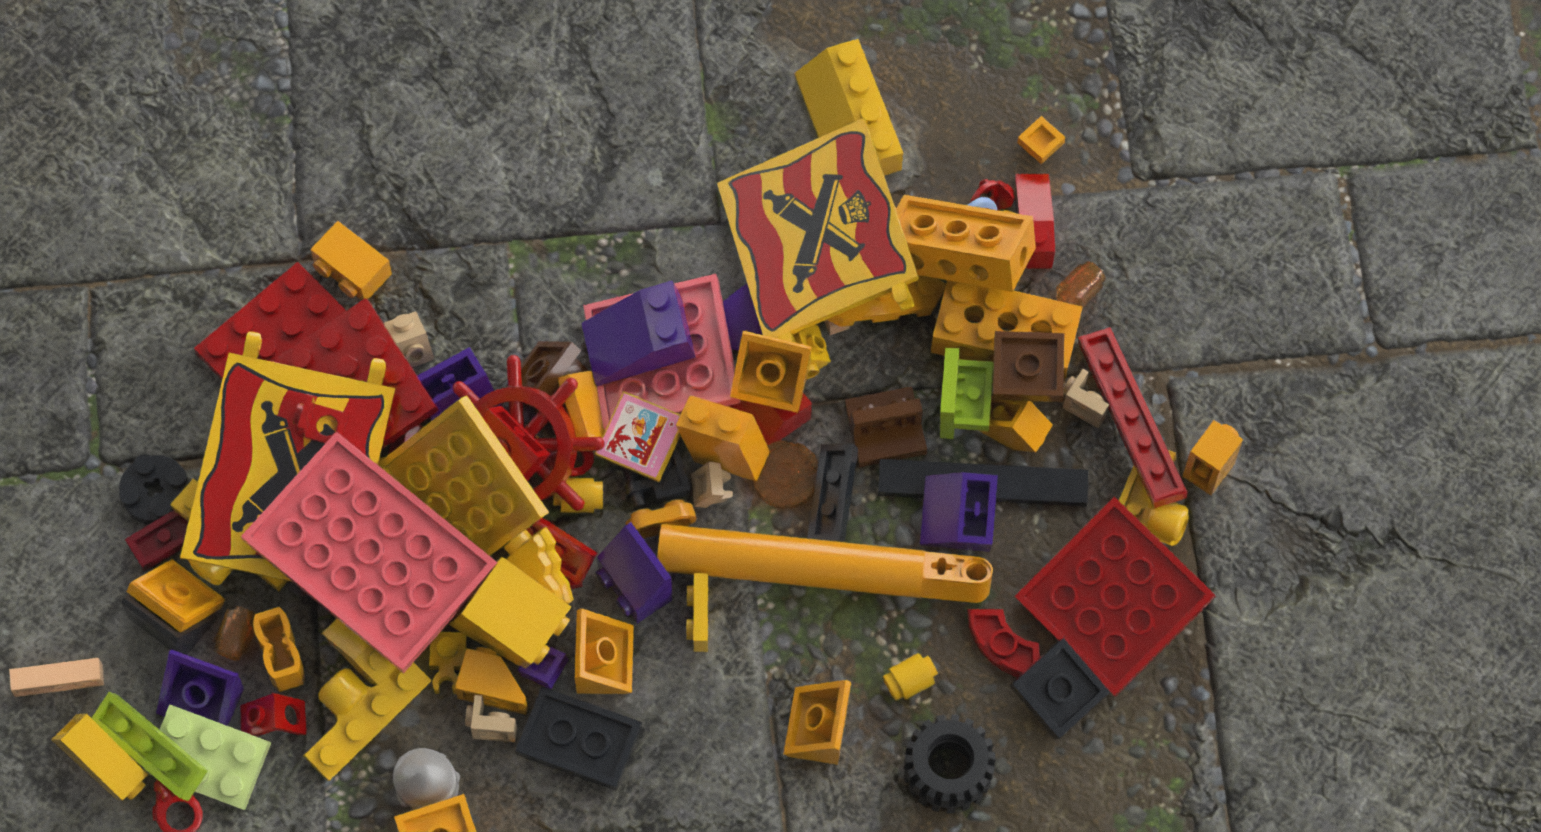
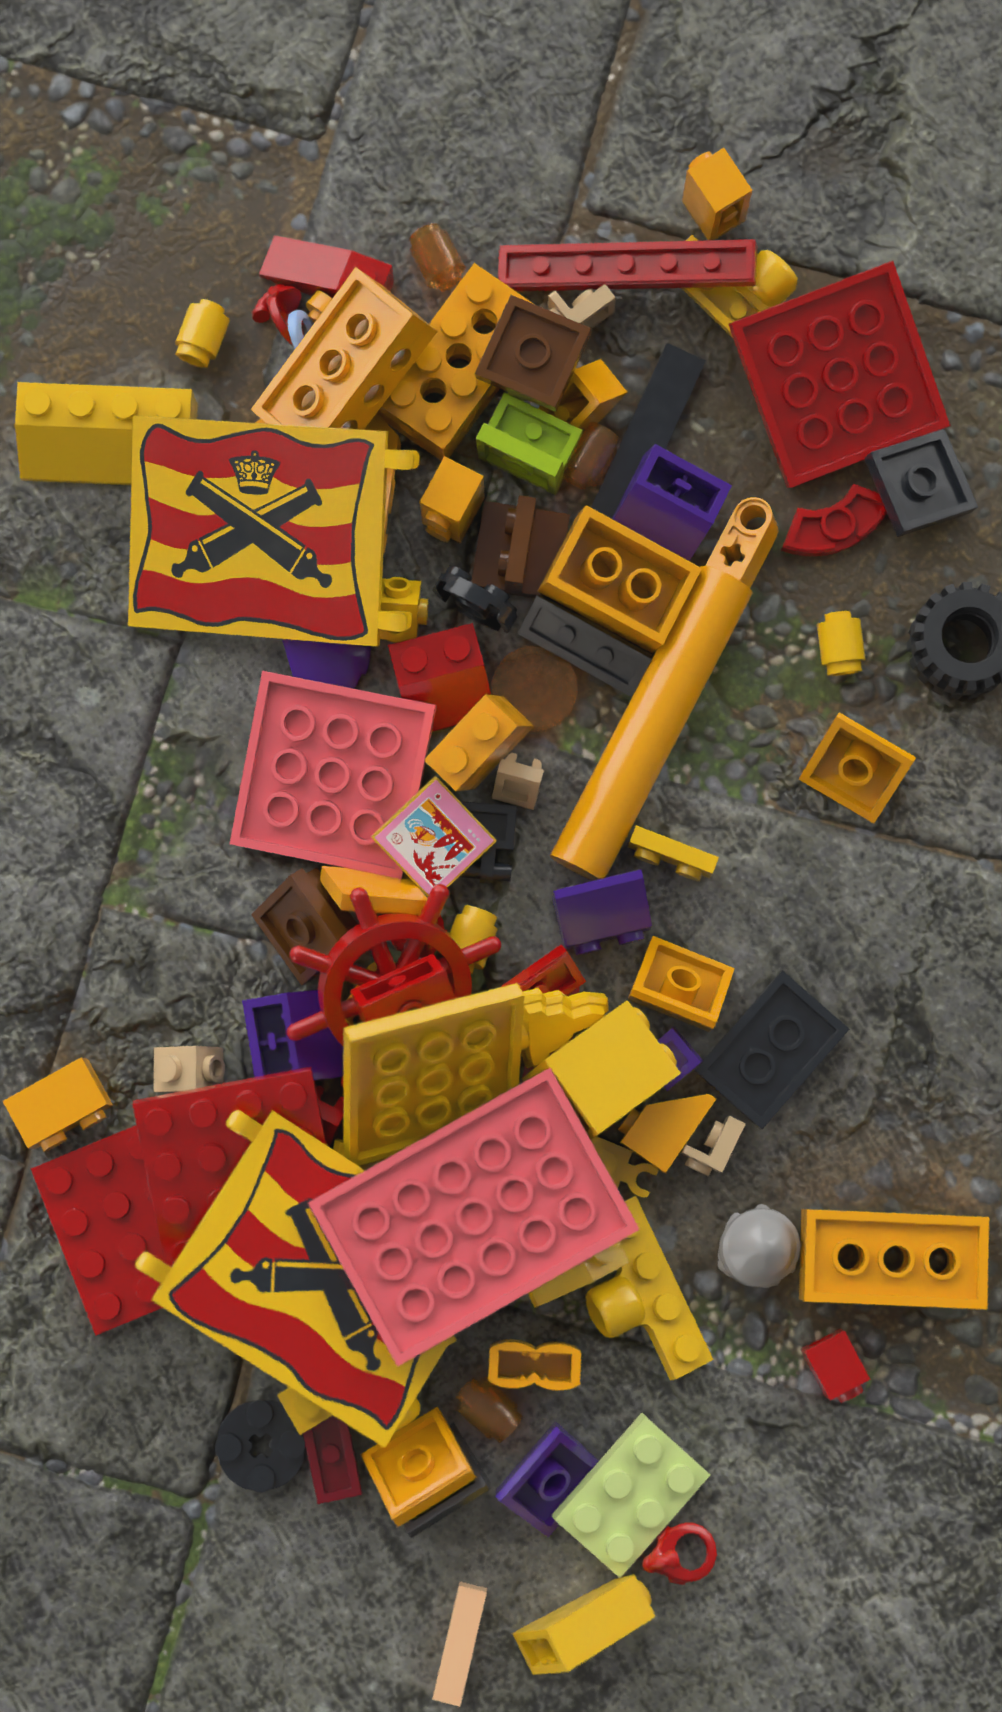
camera: 65 degrees left, 15 degrees up
(149, 746) = (599, 1563): lime plate -> none
(268, 715) = (609, 1404): red bracket -> none
(308, 415) = (275, 1232): red bracket -> none
(638, 334) = (305, 794): dark purple slope -> none
(674, 513) = (539, 836): light orange plate -> none
(771, 371) = (427, 654): light orange slope -> none
(831, 402) = (481, 605): none -> black plate
(888, 492) = (619, 579): none -> light orange brick
(896, 357) = (451, 500): none -> light orange brick
(952, 150) = (201, 333): none -> yellow brick
(976, 446) = (591, 456): none -> clear orange brick
(1041, 140) = (230, 225): light orange plate -> none

